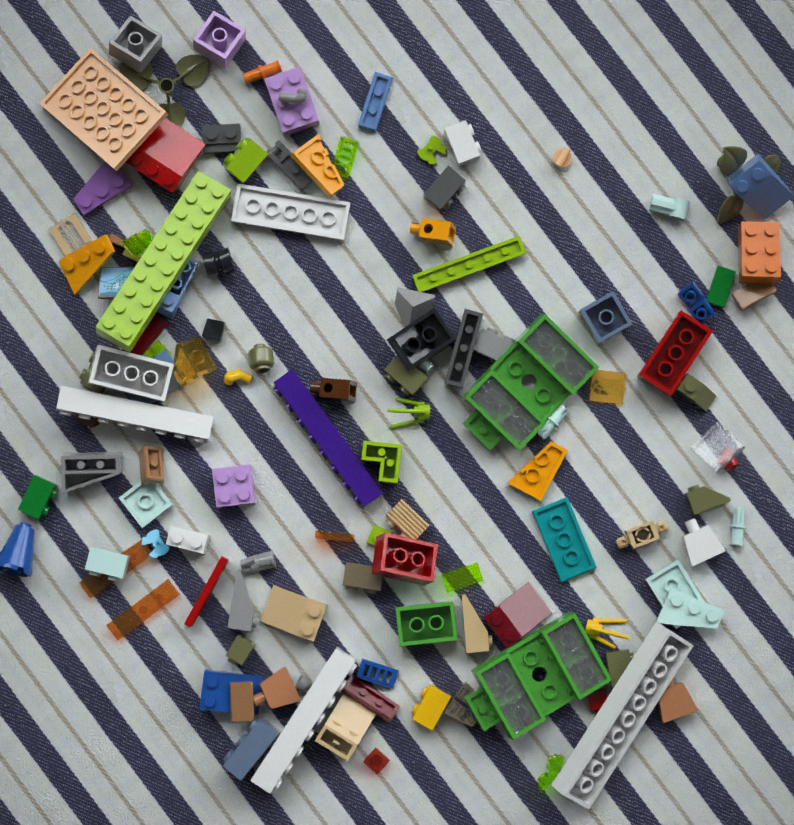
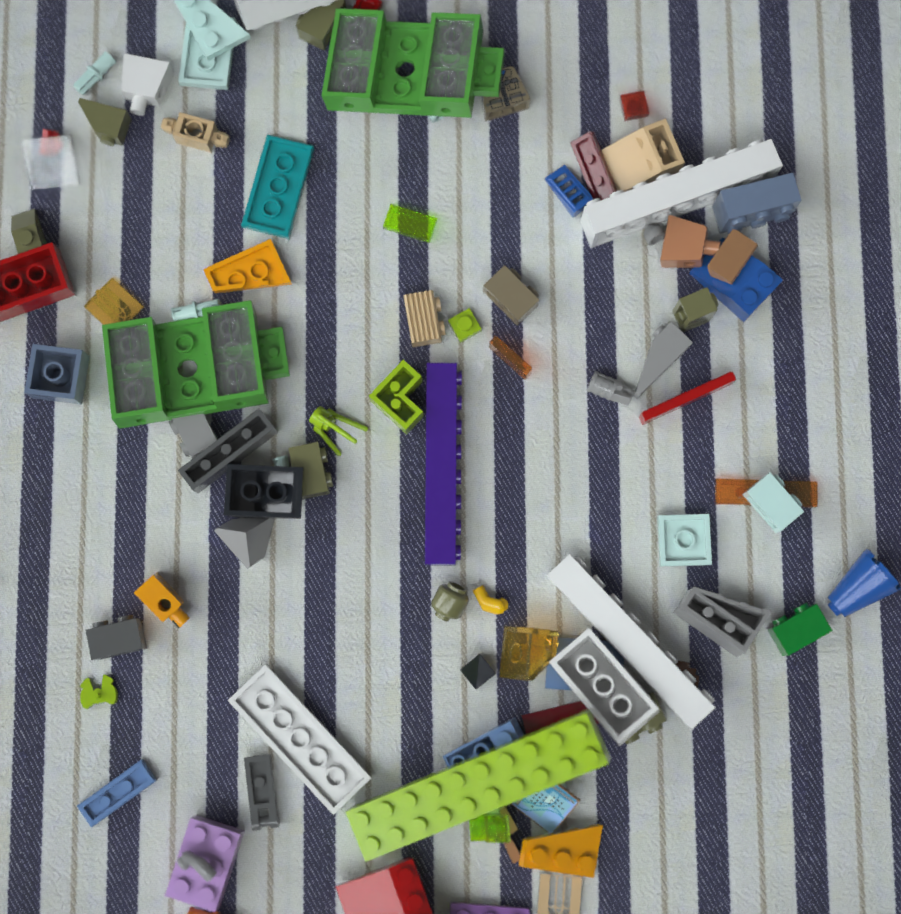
camera: 145 degrees left, 5 degrees down
(143, 609) = (767, 429): clear orange tile -> none
(151, 465) = (651, 573): medium nougat slope -> none
(156, 349) = (556, 696): clear neon green tile -> none
(156, 542) = (703, 487): medium azure piece -> none
(187, 539) = (668, 465): white brick -> none
(218, 262) = (419, 741): black wheel -> none
(221, 138) = (313, 880): dark grey plate -> none
(234, 486) = (578, 486): lavender brick -> none
(244, 159) = (305, 835): lime brick -> none
(293, 613) = (610, 309): tan slope -> none
(317, 165) = (231, 770): light orange wing -> none
(342, 389) = (386, 503): reddish brown torso -> none
(343, 139) = (176, 768): clear neon green slope -> none
(404, 559) = (455, 277): red brick -> none
(426, 623) = (481, 200): bright green brick -> none
(430, 707) = (539, 117): yellow brick -> none
(462, 143) = (58, 674): white brick -> none
(469, 264) = (154, 537): lime plate -> none
(474, 631) = (439, 156): tan slope -> none
(517, 615) = (383, 144): slope -> none
(594, 628) = (314, 75): yellow plant -> none

